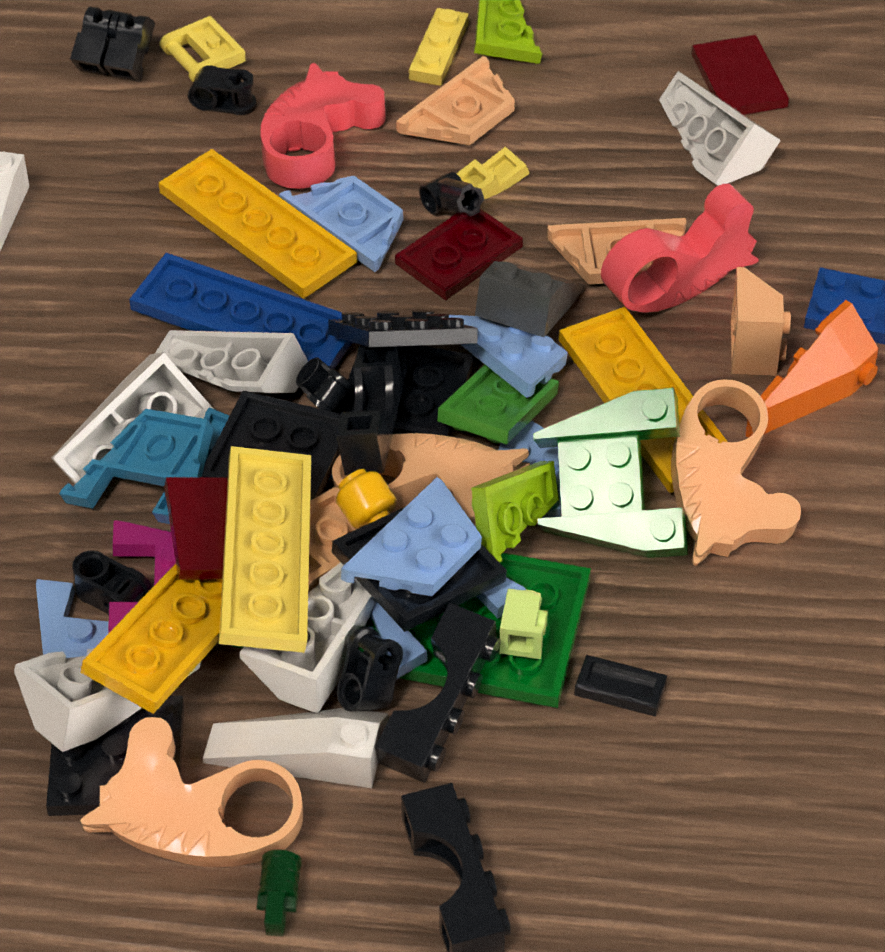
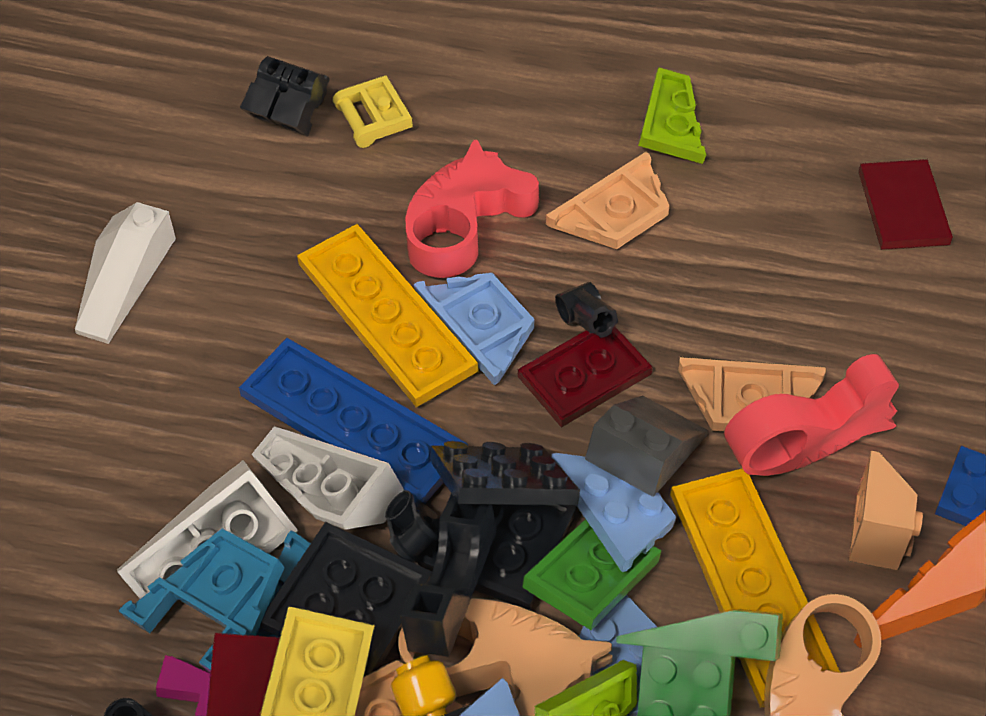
camera: 10 degrees right, 5 degrees up
(221, 89) = (379, 156): black piece -> none
(438, 46) = (604, 134): light yellow plate -> none
(495, 174) = (633, 288): light yellow slope -> none
(718, 137) = (873, 273): white wedge -> none

